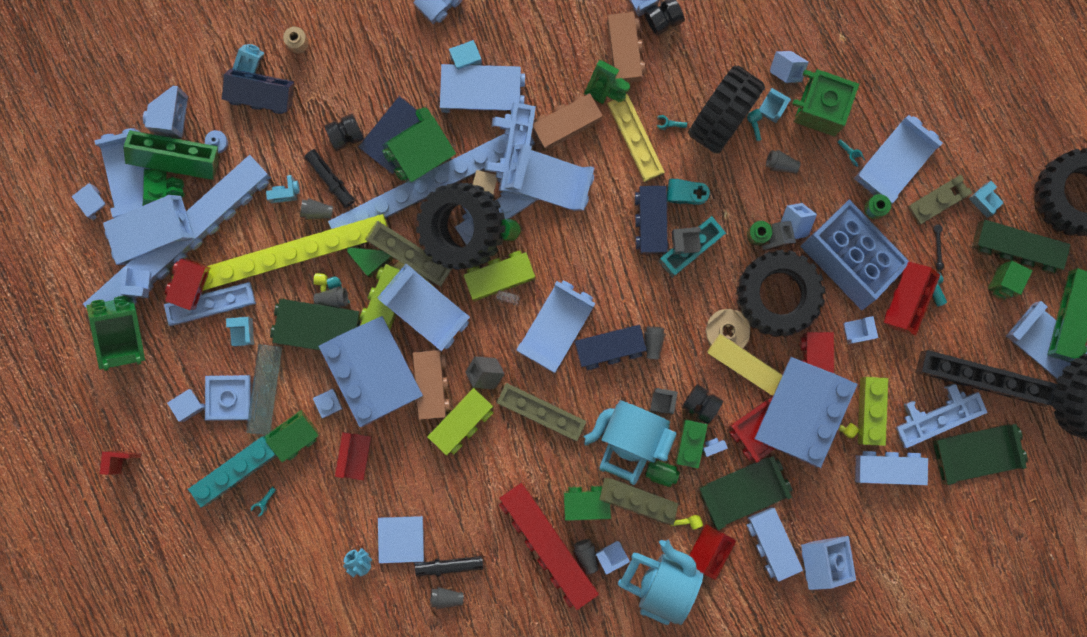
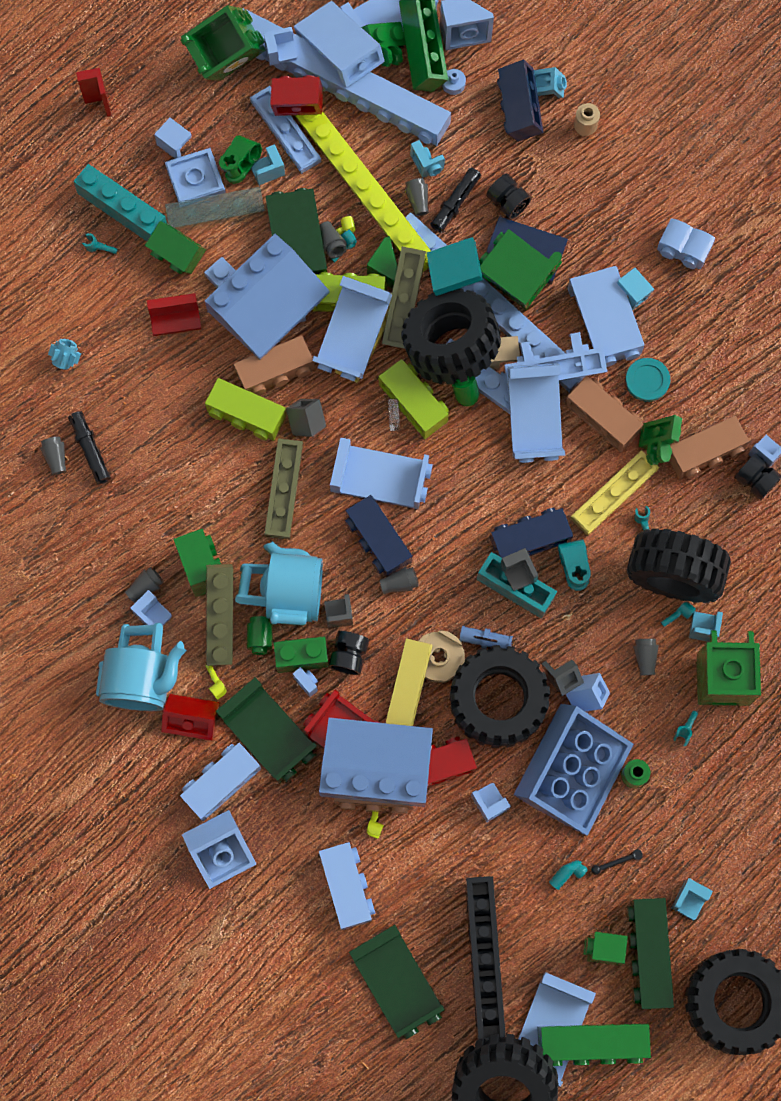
camera: 70 degrees right, 10 degrees down
(225, 353) = (240, 156): none -> green piece
(400, 539) = (102, 391): light blue tile -> none
(401, 201) = (454, 266): none -> teal tile
(547, 75) = (647, 379): none -> teal piece
(549, 546) = (142, 541): red brick -> none
(725, 287) = (468, 635): none -> medium blue pin
(753, 235) = (555, 660): green brick -> none
(788, 66) = (758, 622): light blue panel -> none
(873, 411) = (404, 842): lime brick -> none
(898, 158) = (697, 784): light blue panel -> none
(911, 298) = (546, 845): red brick -> none
(924, 425) = (435, 940): light blue hinge -> none
(939, 200) = (670, 845): olive plate -> none

